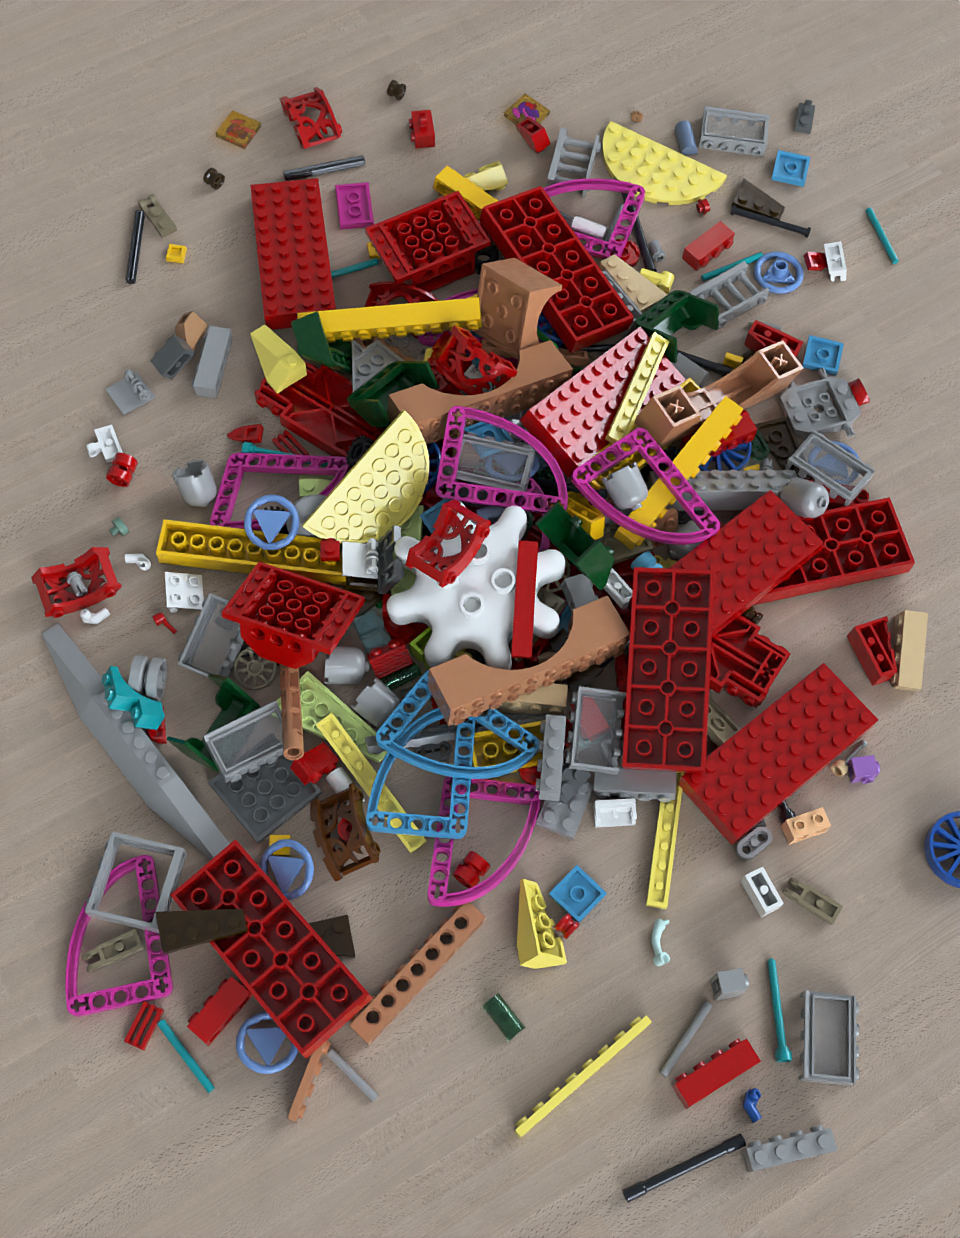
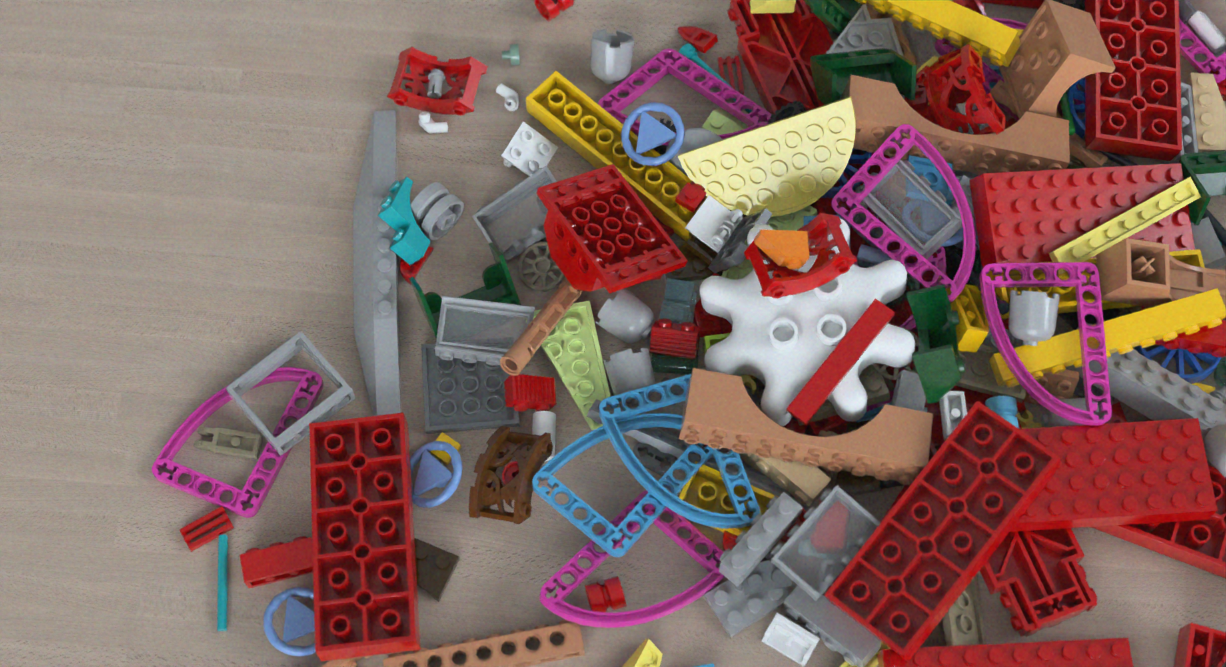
camera: 40 degrees right, 0 degrees up
(159, 618) = (488, 164): red hand -> none
(192, 928) = (307, 468): dark brown wing -> none
(365, 775) = (569, 430): light yellow plate -> none
(435, 543) = (784, 247): none -> orange slope
(752, 615) = (1086, 539): dark brown wheel -> none

